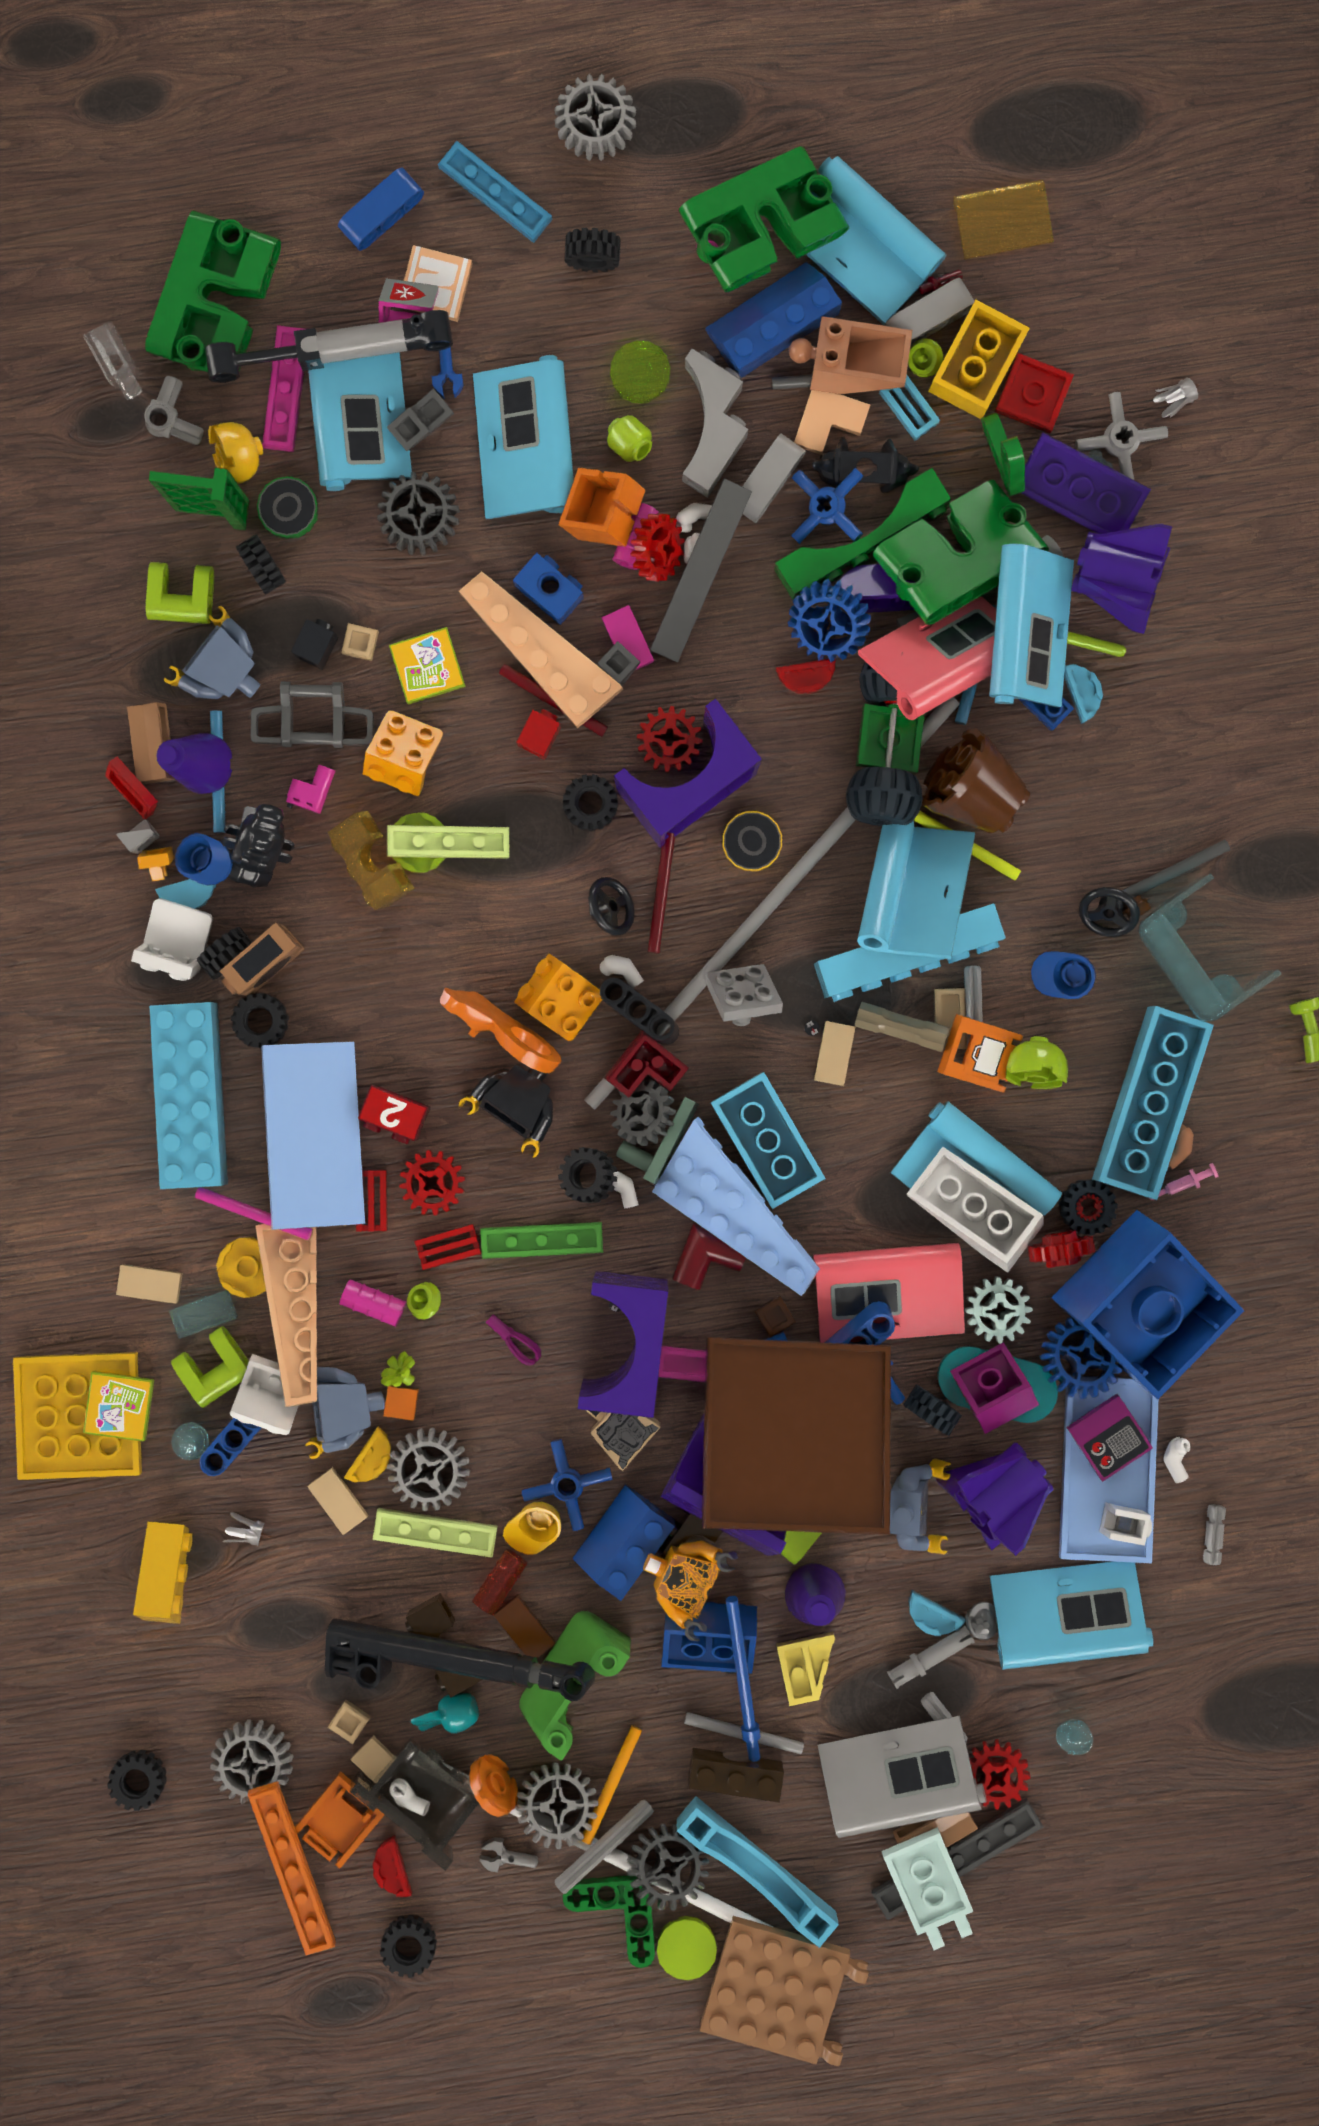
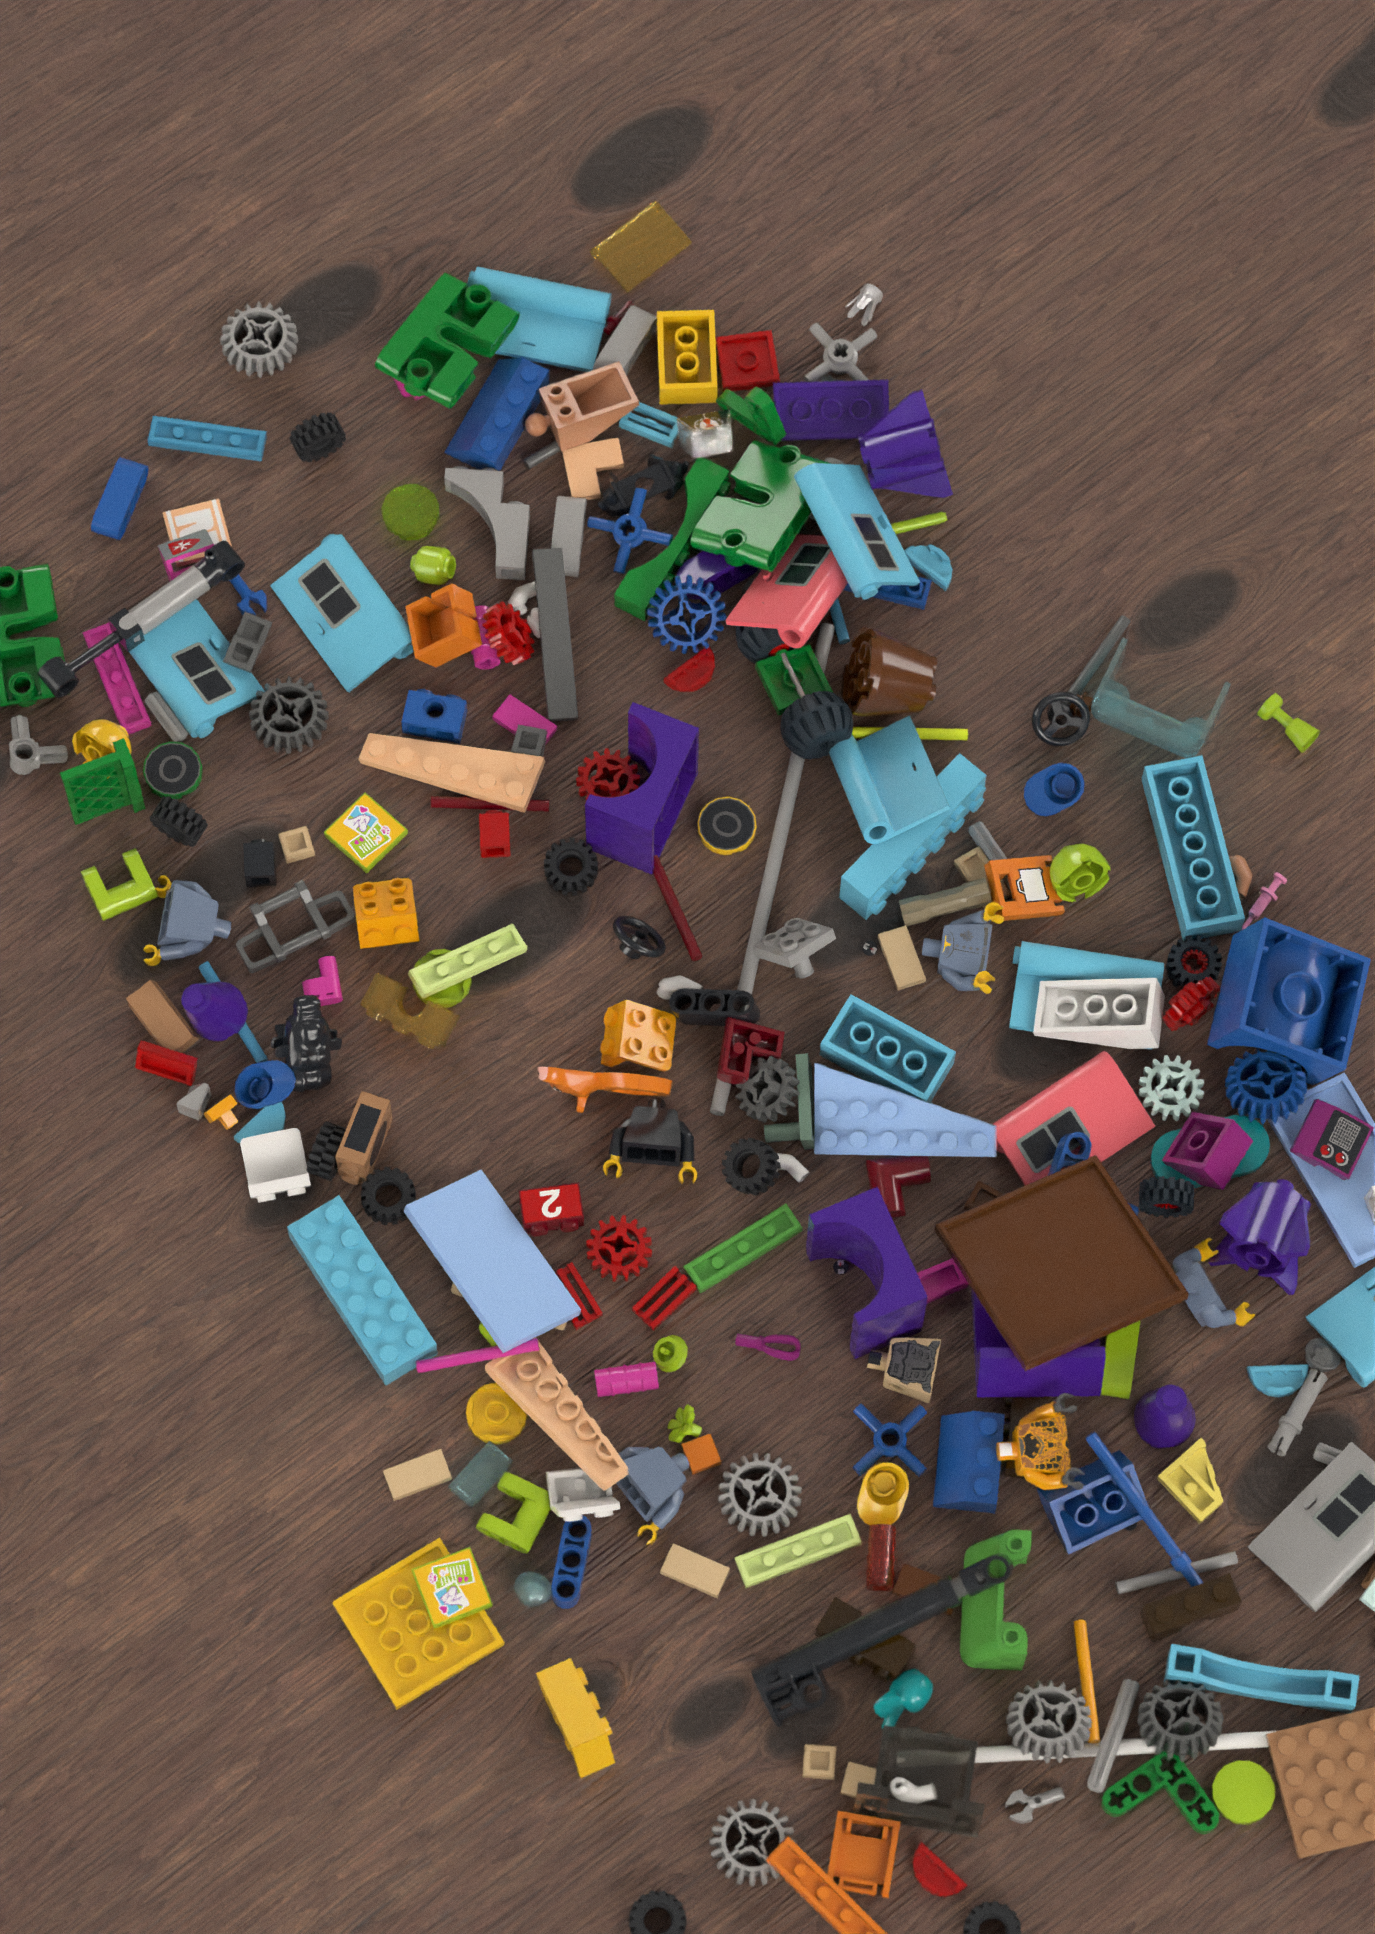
camera: 30 degrees left, 20 degrees down
(250, 1535) = (633, 1636): flat silver piece -> none
(308, 452) = (166, 717): none -> light grey axle
(372, 1458) = (704, 1518): yellow tile -> none
(493, 1785) = (979, 1731): orange tile -> none
(892, 1082) = (965, 950): none -> sand blue torso
(925, 357) = (643, 379): lime hat -> none
(952, 449) = (707, 433): none -> clear torso

